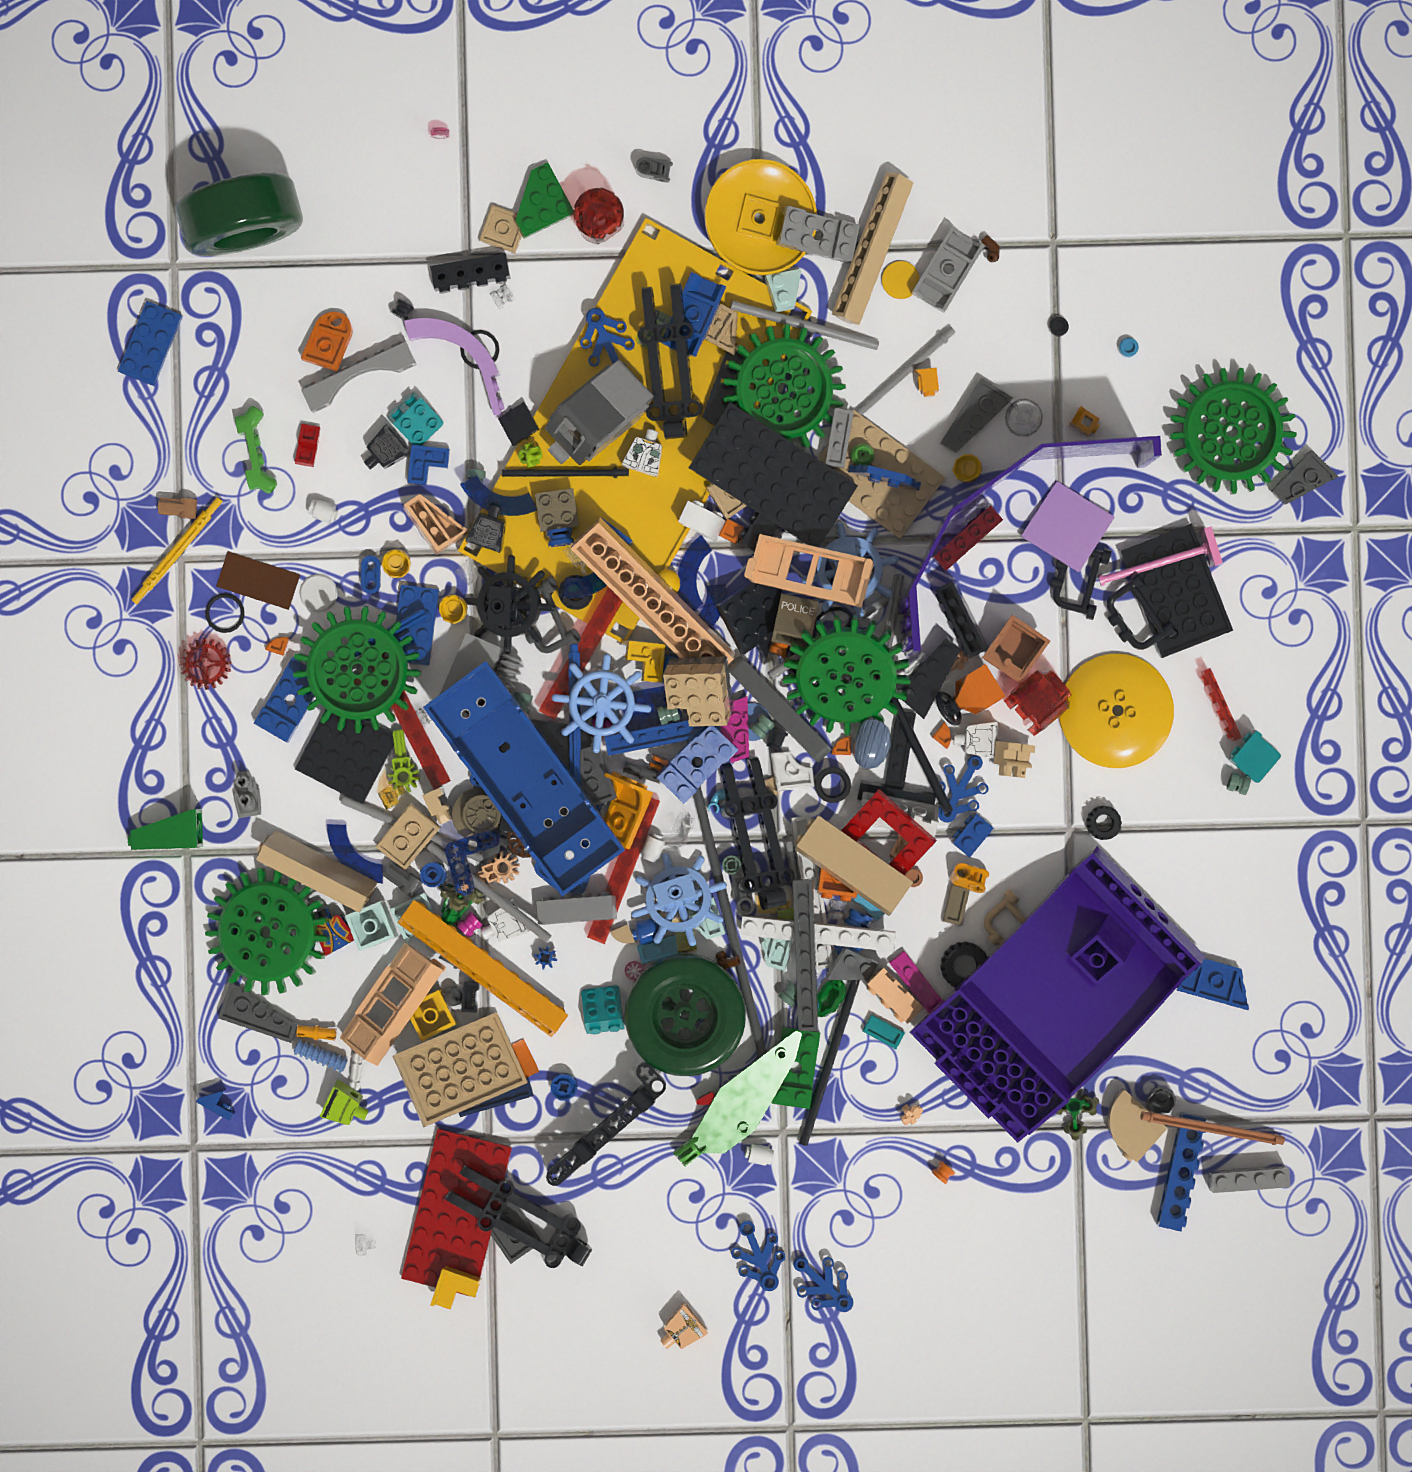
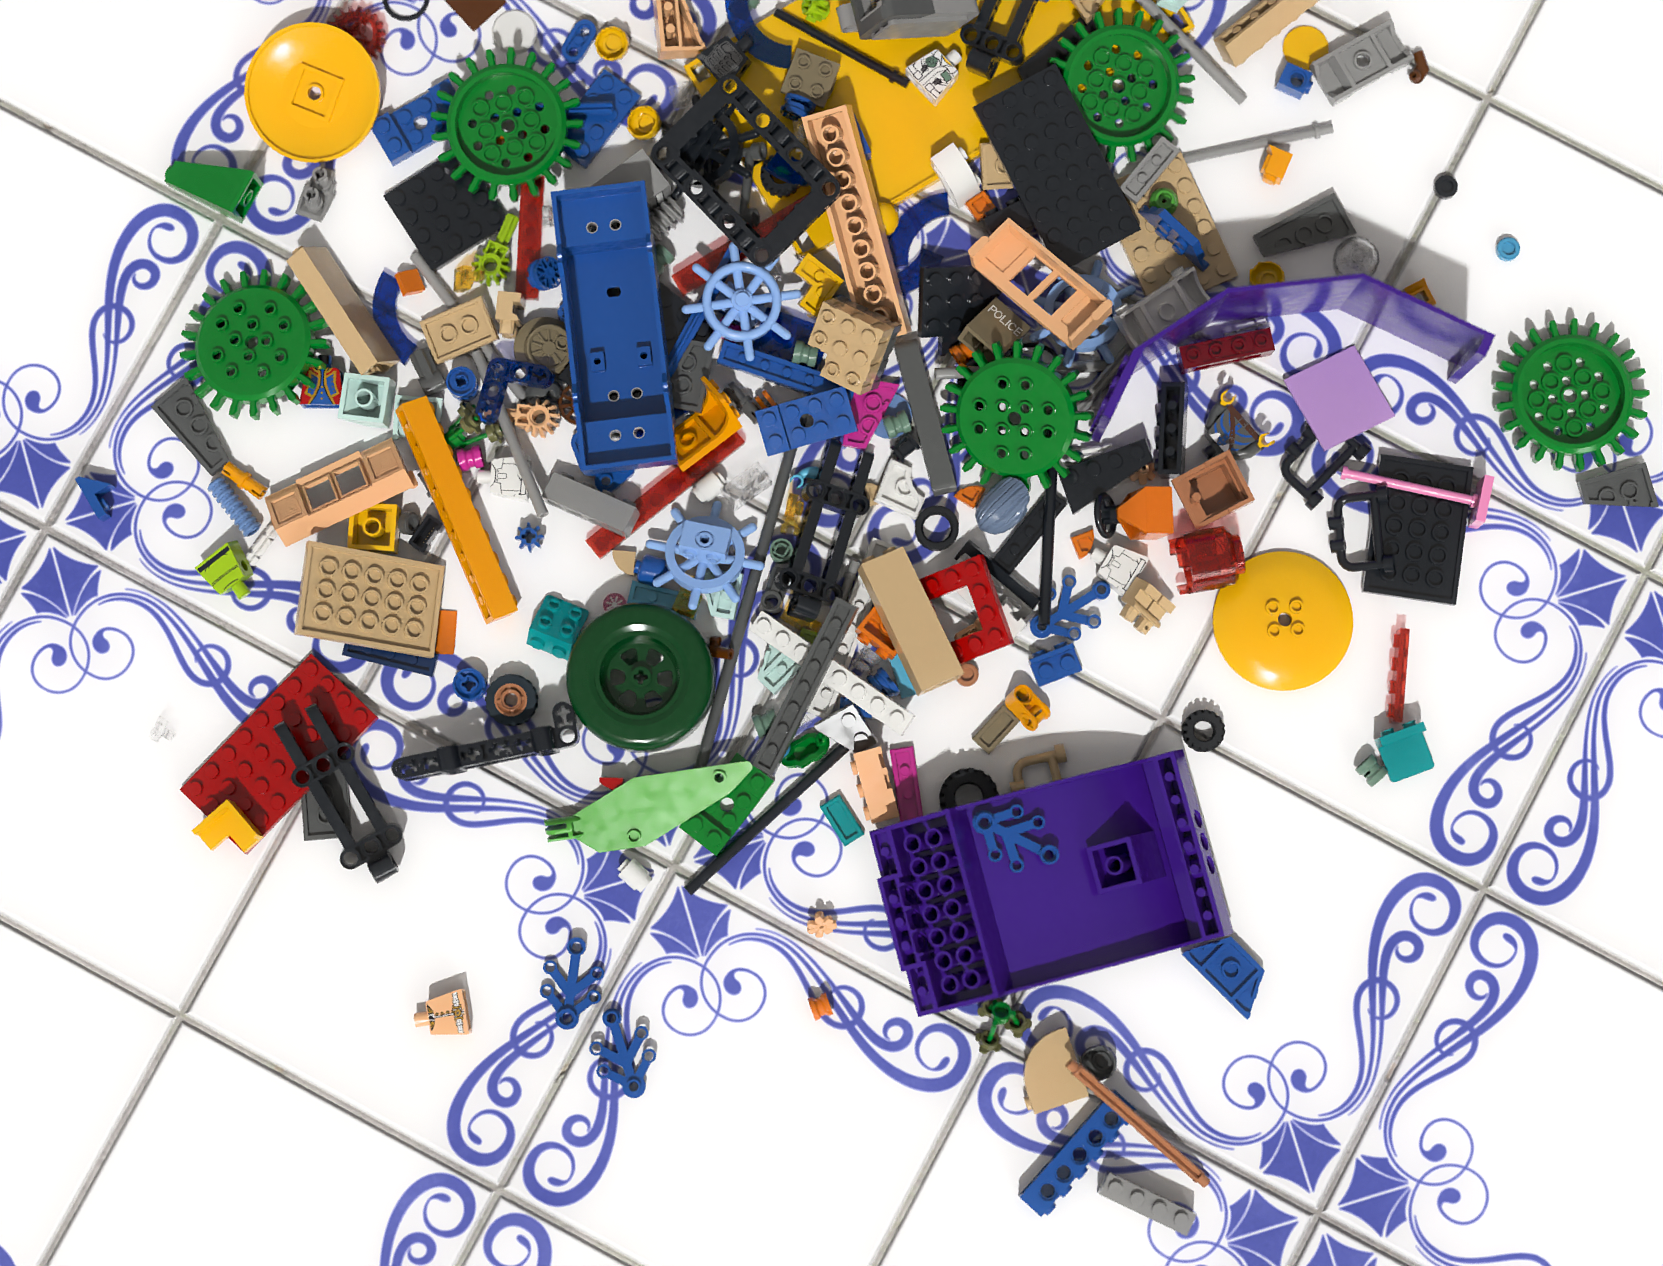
camera: 30 degrees right, 5 degrees down
(193, 750) = (281, 84): none -> yellow dish
(278, 645) = (441, 61): orange tile -> none
(351, 821) = (409, 282): none -> orange tile
(449, 765) = (544, 273): none -> blue wheel
(543, 646) = (711, 202): none -> black beam
(597, 1092) = (497, 696): none -> black wheel
(723, 828) = (793, 509): none -> clear yellow plate
(900, 316) = (1293, 71): none -> blue brick
(909, 537) = (1161, 307): none -> white piece
(1005, 597) = (1231, 432): none -> torso
(1012, 980) = (1011, 835): none -> blue plant

